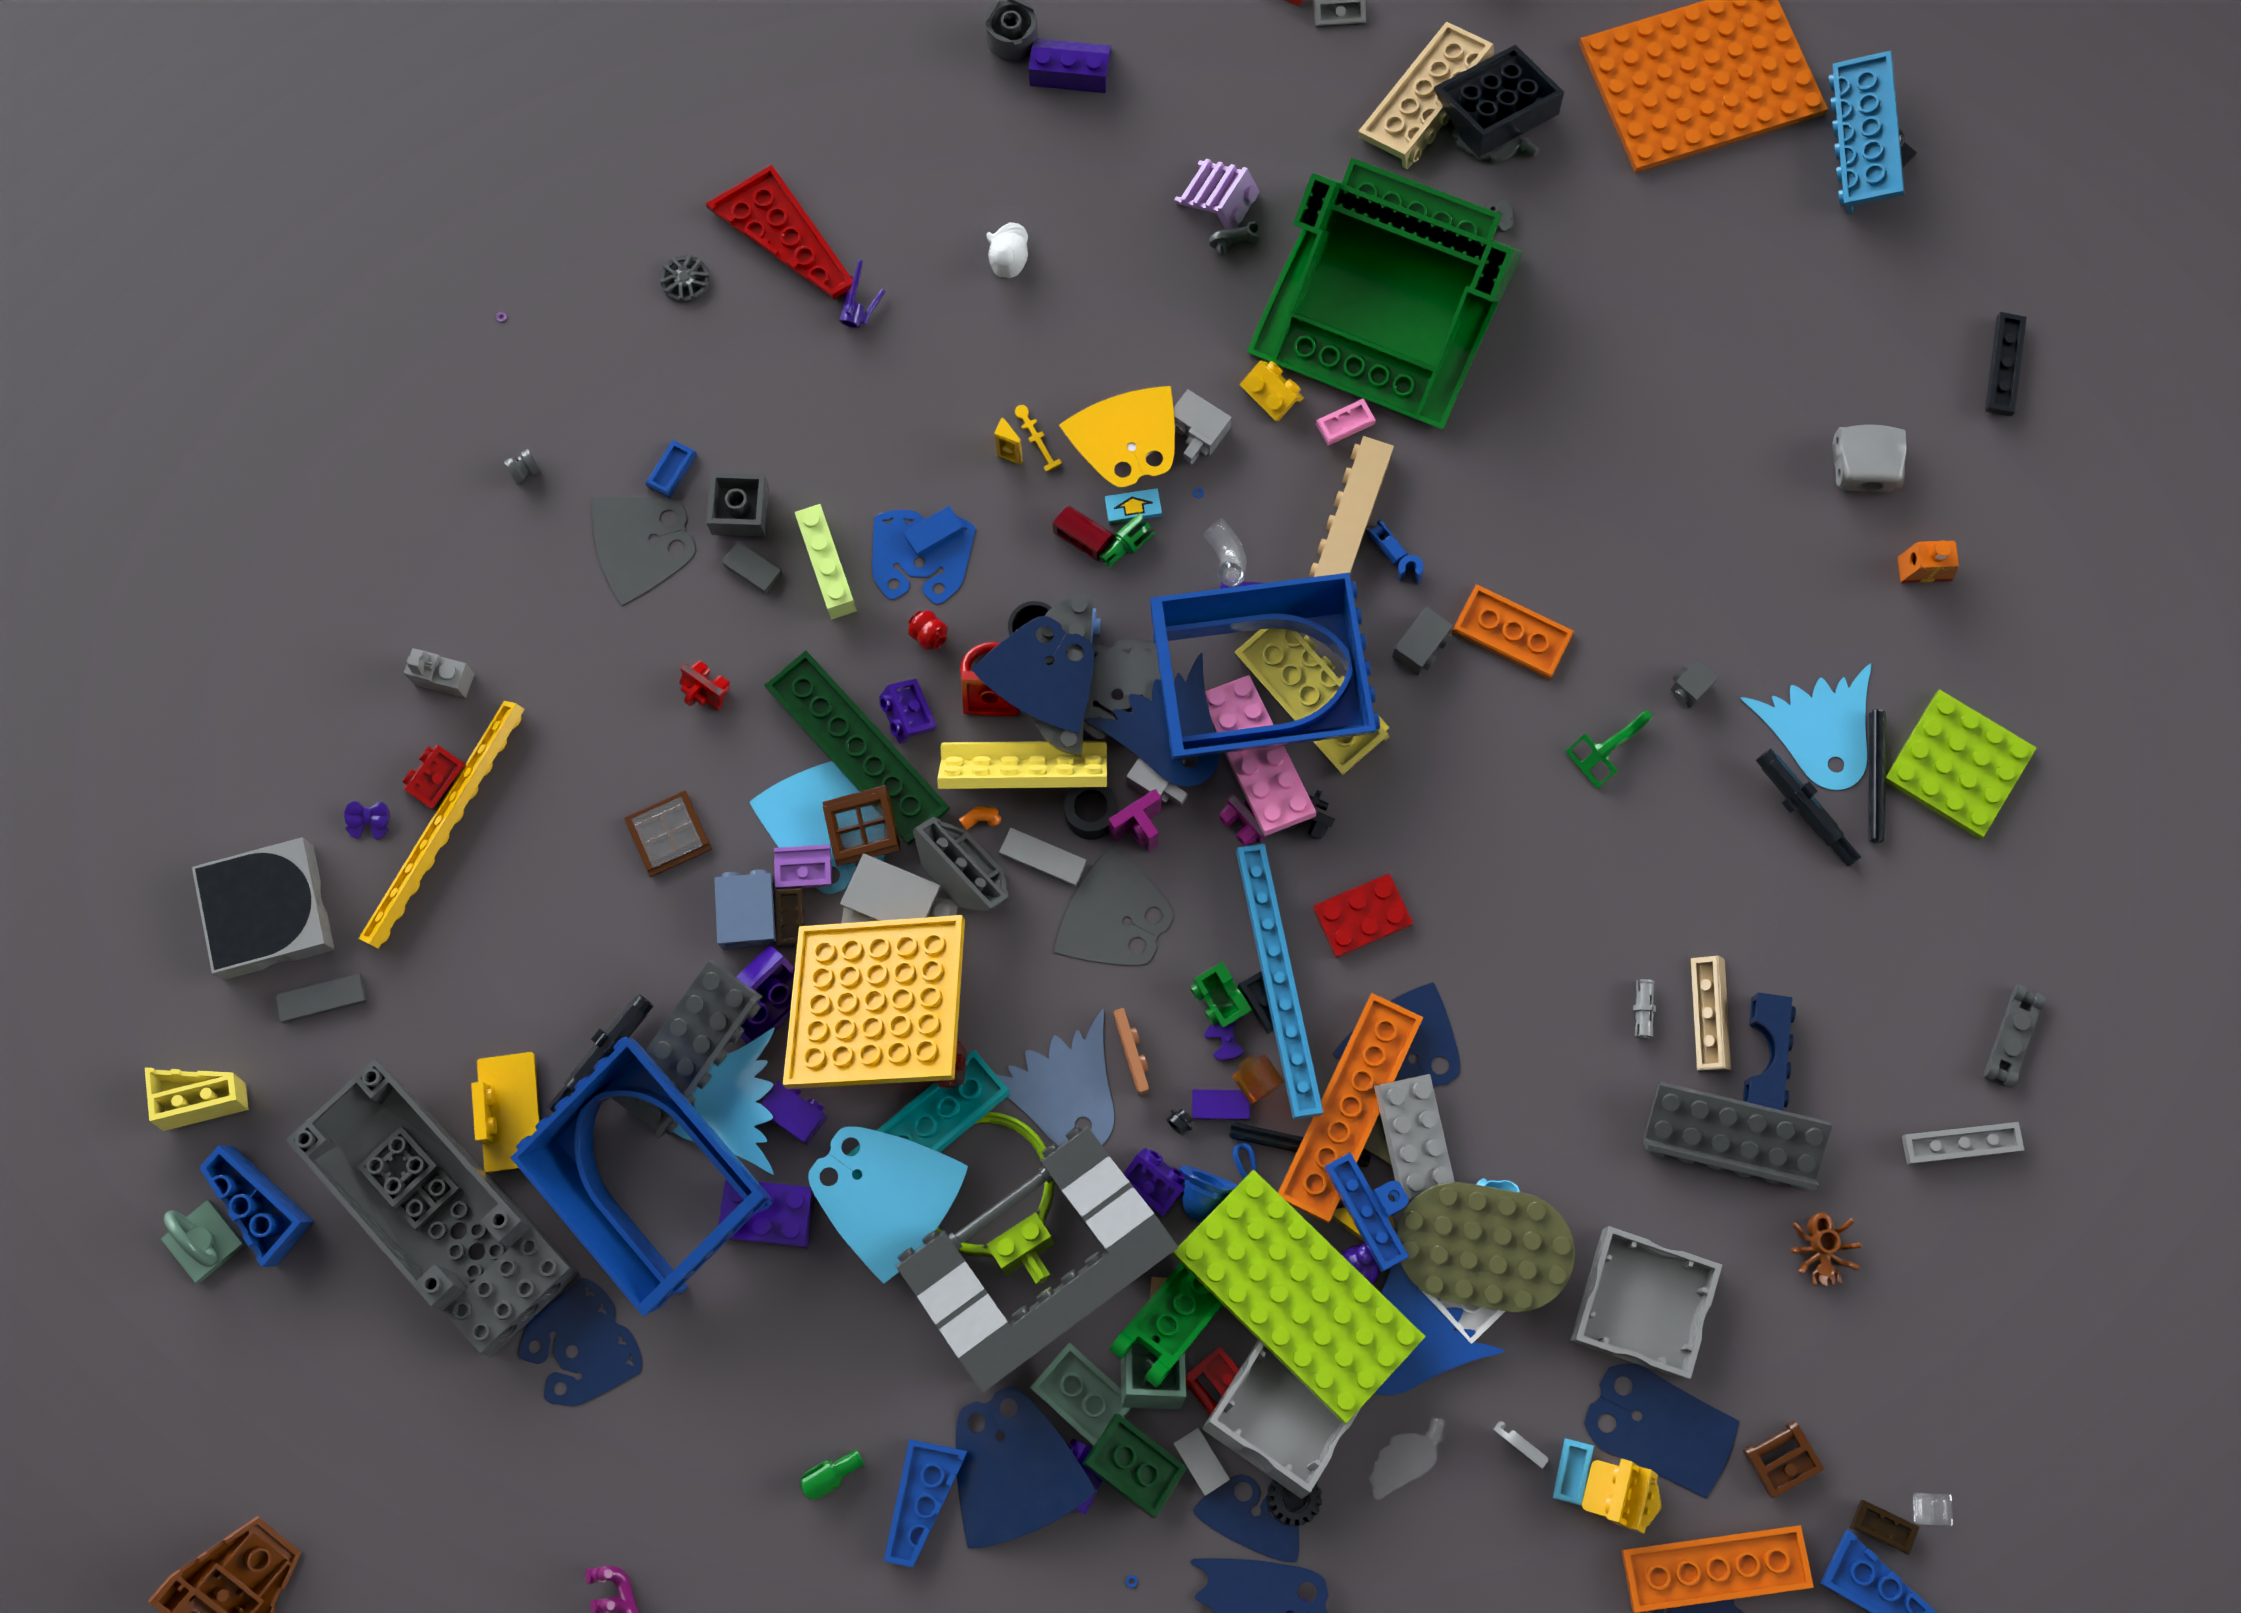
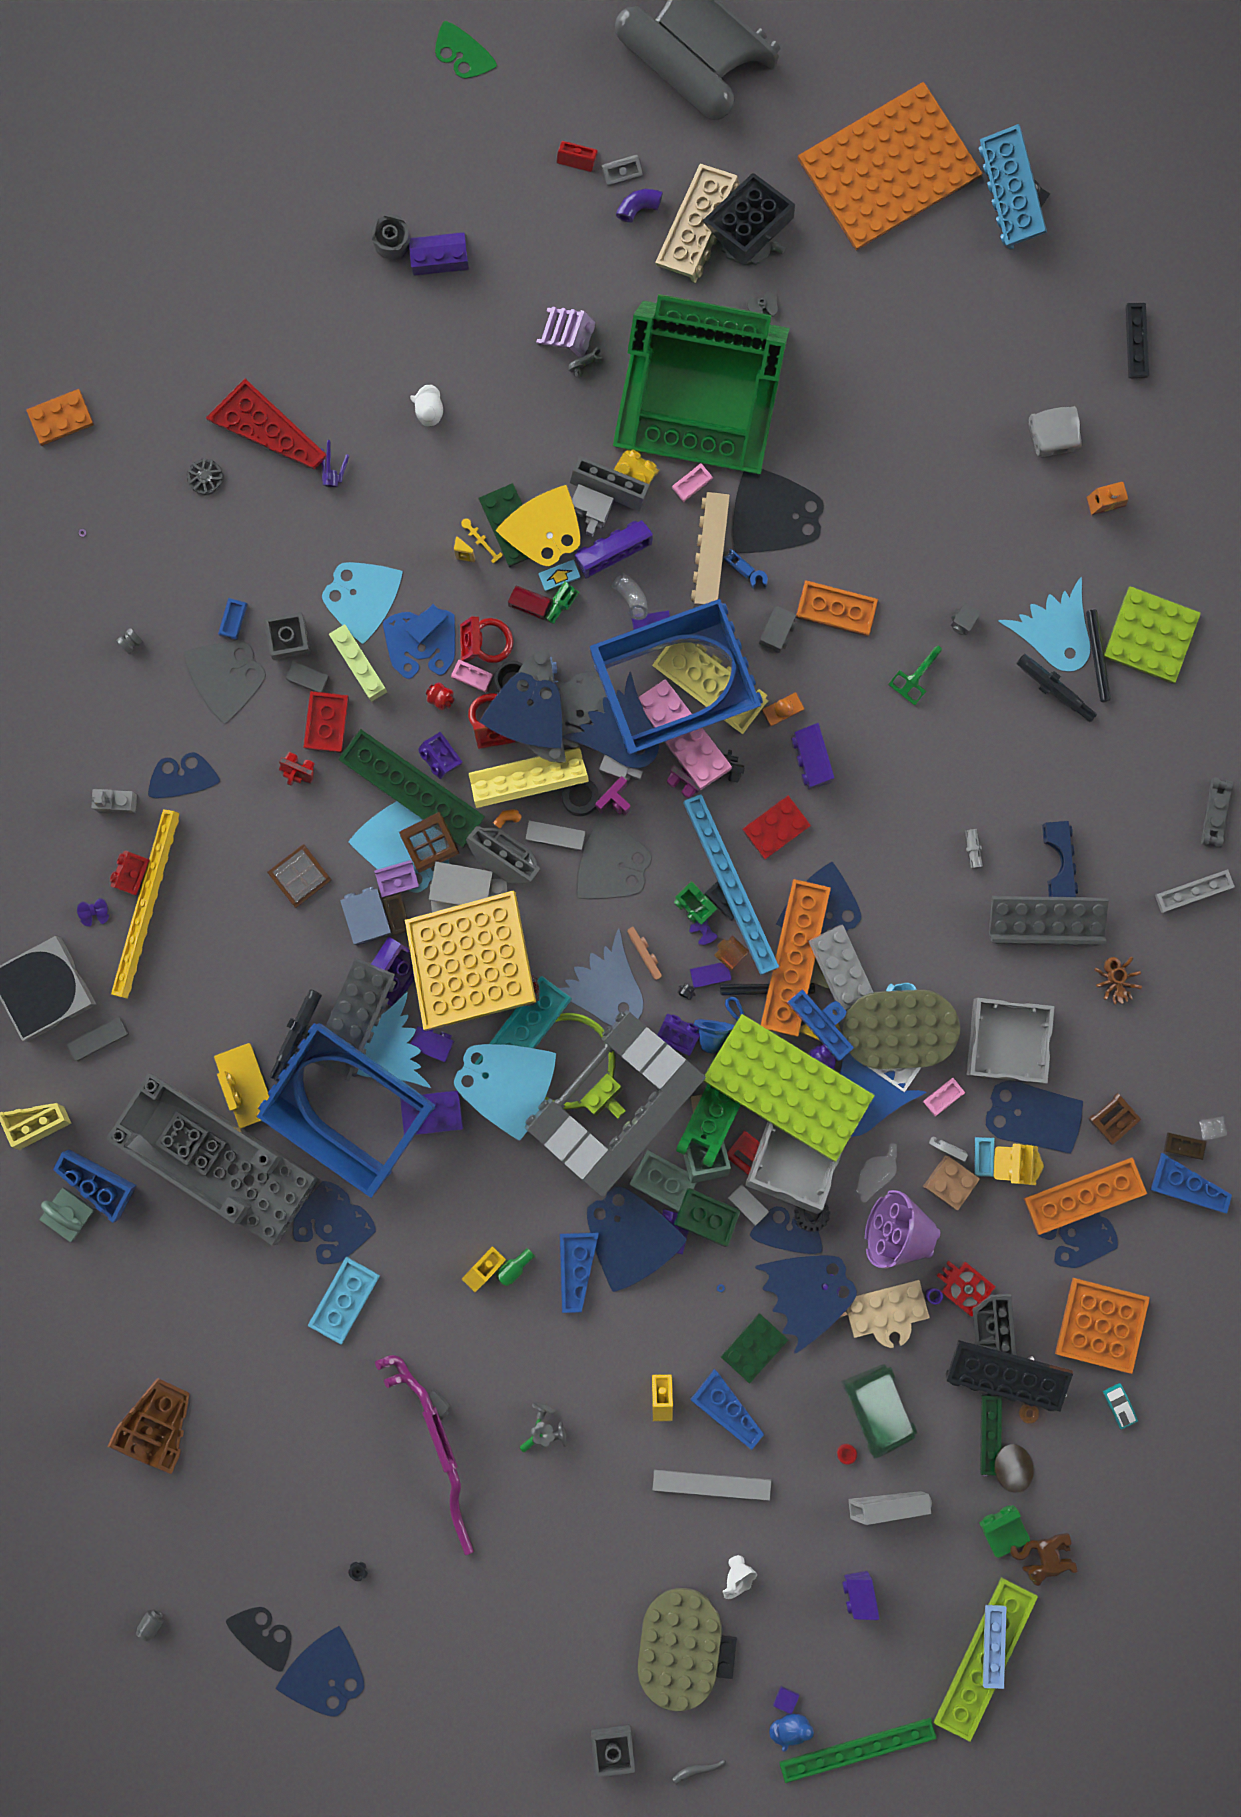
camera: 20 degrees left, 10 degrees up
(514, 165) = (60, 417): none -> orange plate
(555, 672) = (193, 780): none -> dark blue piece
(565, 1465) = (343, 1300): none -> medium azure tile
(761, 631) = (326, 722): none -> red plate
(783, 1466) = (483, 1269): none -> yellow slope
(873, 478) = (374, 595): none -> medium azure piece
(979, 613) = (472, 676): none -> bright pink plate
(991, 562) = (472, 639): none -> red tile
(1067, 398) = (498, 507): none -> dark green plate
(1217, 485) = (614, 548): none -> dark purple slope
(1248, 407) = (609, 482): none -> dark grey brick
(1352, 51) = (636, 201): none -> dark purple cylinder
(1407, 753) = (783, 709): none -> orange tile
(1421, 1556) = (899, 1232): none -> medium lavender cone
(1436, 826) = (812, 756): none -> dark purple slope
(1439, 487) = (765, 513): none -> black piece
(1515, 1499) = (951, 1182): none -> medium nougat brick
(1529, 1365) = (943, 1097): none -> bright pink plate
(1711, 1014) = (1017, 841): tan slope -> none

